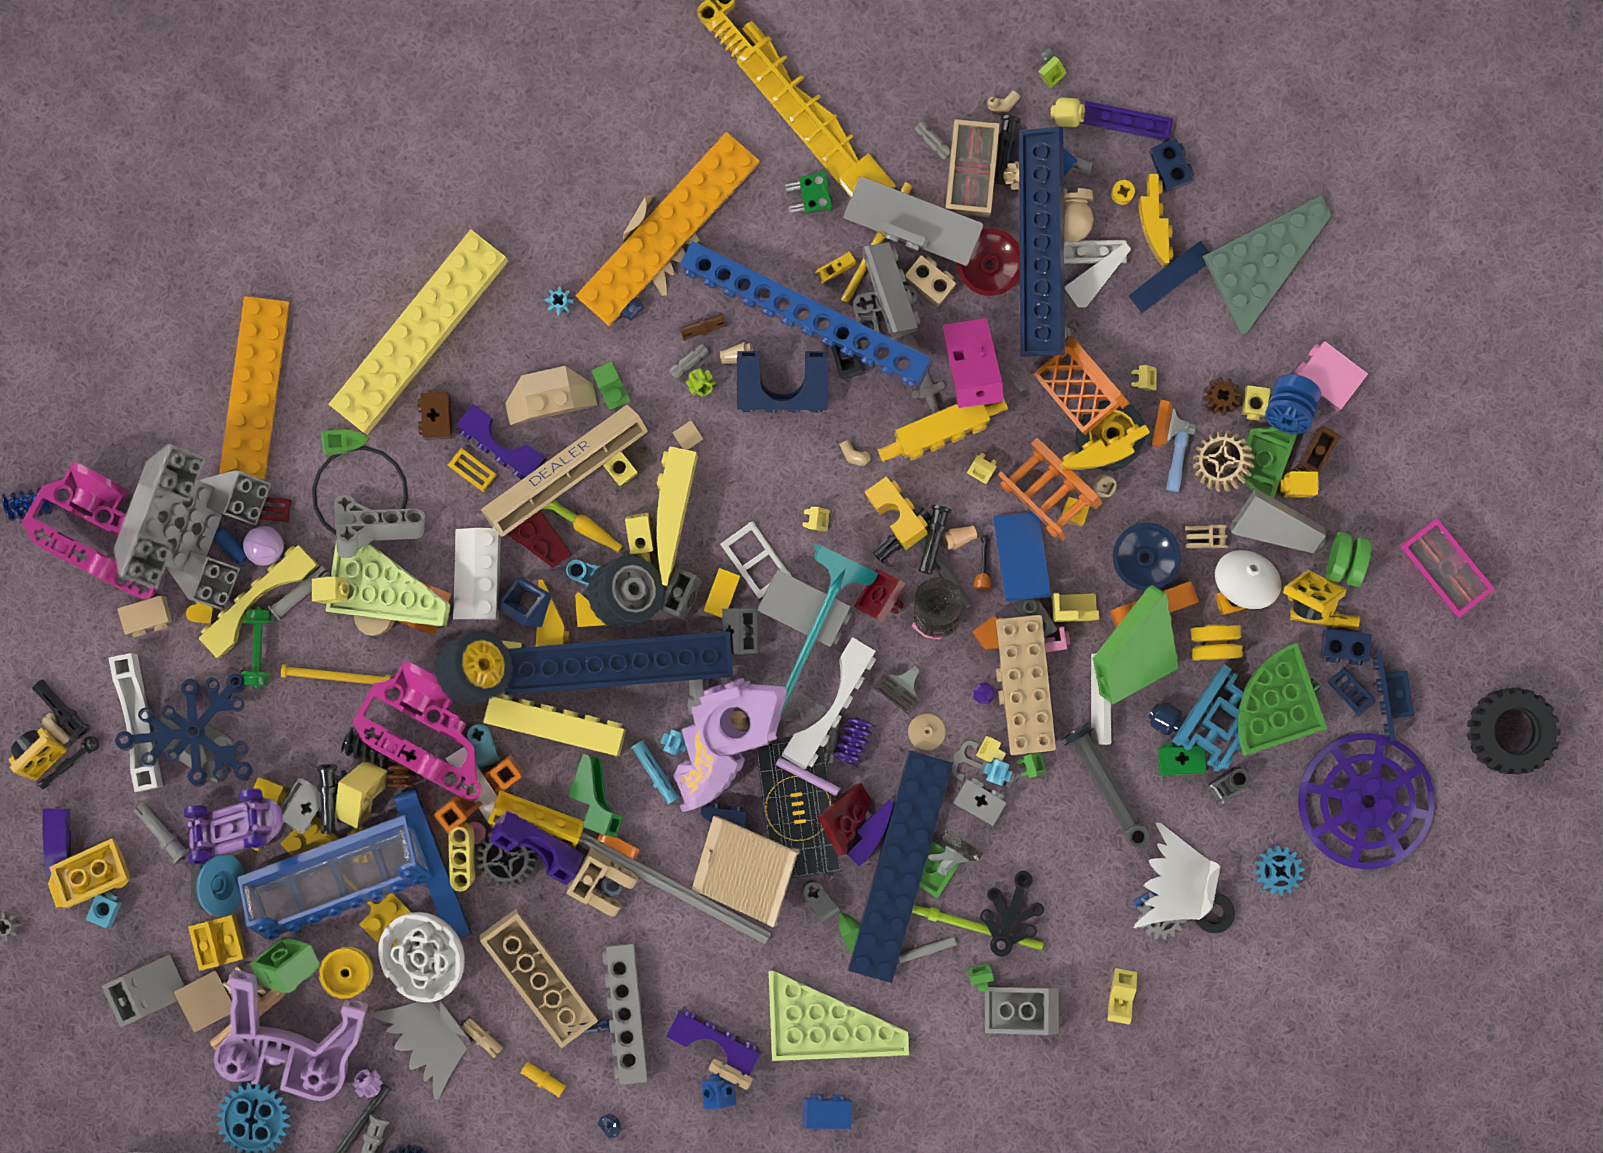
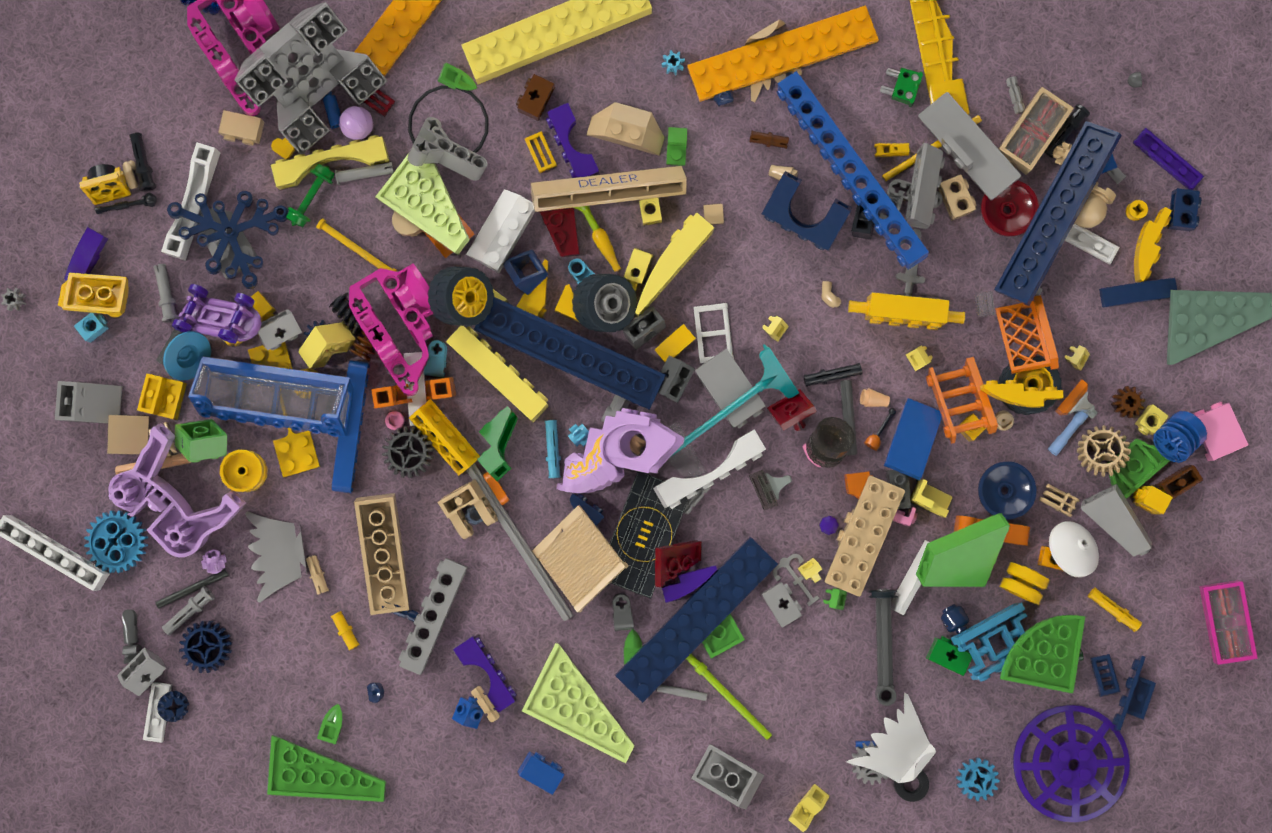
camera: 25 degrees right, 0 degrees up
(327, 788) = (304, 327): black pin -> none
(330, 590) = (386, 182): light yellow brick -> none
(412, 965) = (294, 492): white brick -> none
(458, 866) = (383, 428): light yellow beam -> none
(560, 860) = (446, 475): dark purple arch -> none
(689, 361) = (746, 159): light grey axle -> none
(700, 382) = (745, 179): lime gear -> none
(798, 771) = (664, 514): lavender bar -> none
(853, 741) = (712, 507): dark purple piece -> none
(886, 497) = (836, 339): yellow arch -> none
(926, 731) = (770, 530): tan piece -> none
(927, 566) = (863, 384): black pin -> none
(956, 852) = (745, 632): piece -> none
(972, 363) = (956, 274): dark pink brick -> none
(980, 975) = (711, 734): bright green tile -> none
(997, 772) = (807, 589): medium azure gear -> none
(1003, 105) = (1081, 97): tan arm -> none
(1010, 918) = (757, 703): black plant -> none
(1052, 72) = (1132, 92): lime tile -> none
(1068, 112) = (1129, 128): light yellow head -> none
(1089, 283) = (1071, 265): white sticker -> none
(1227, 786) = (973, 694): dark grey piece -> none
(1311, 598) = (1116, 588): yellow piece -> none
(1346, 641) = (1121, 635): dark blue brick -> none
(1348, 559) = (1158, 575): bright green wheel -> none
(1543, 727) = (1237, 777): black tyre -> none

